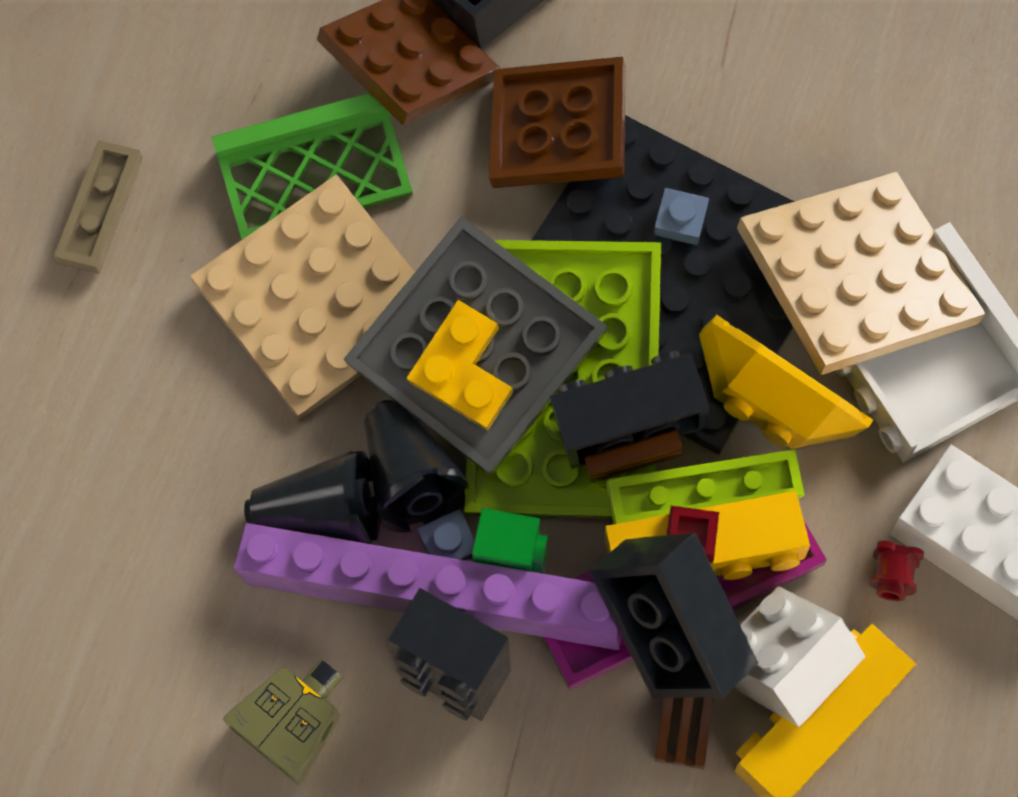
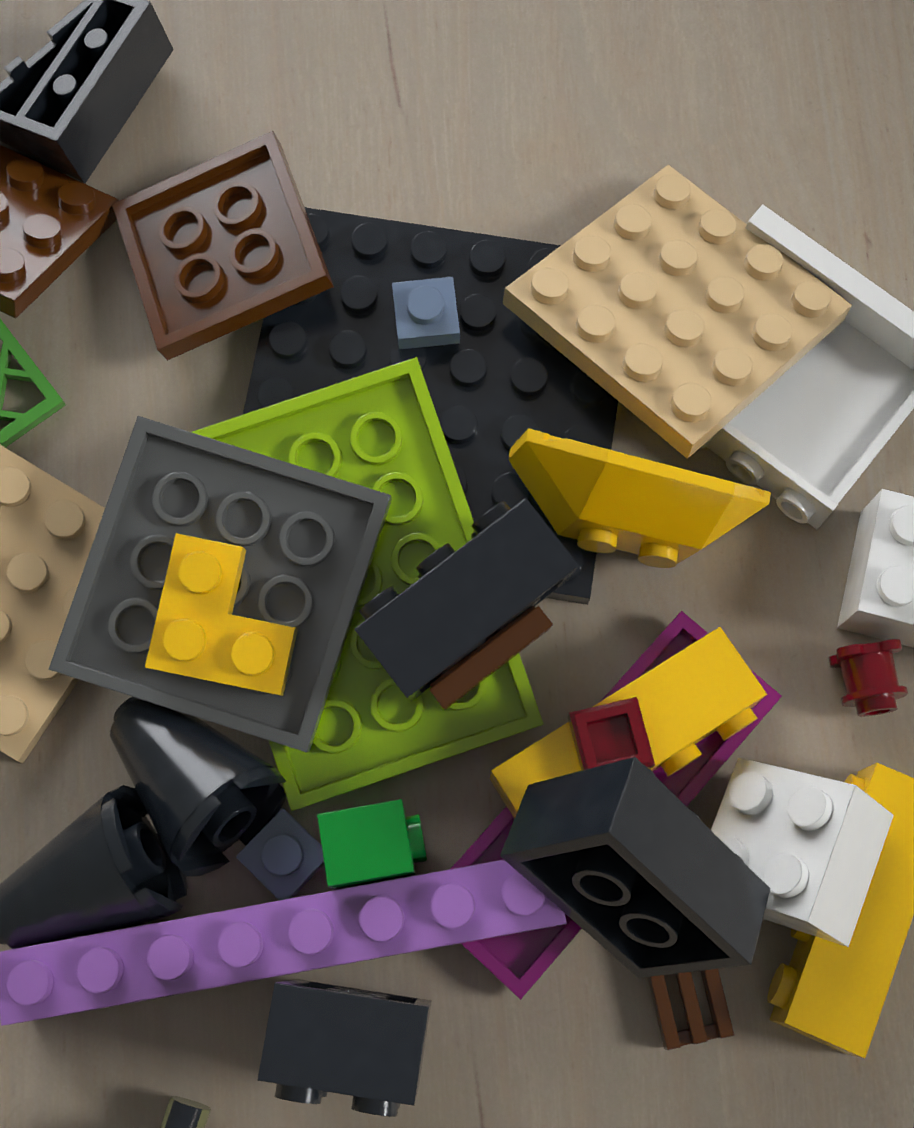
camera: 25 degrees left, 5 degrees up
(703, 485) = (595, 665): lime plate -> none

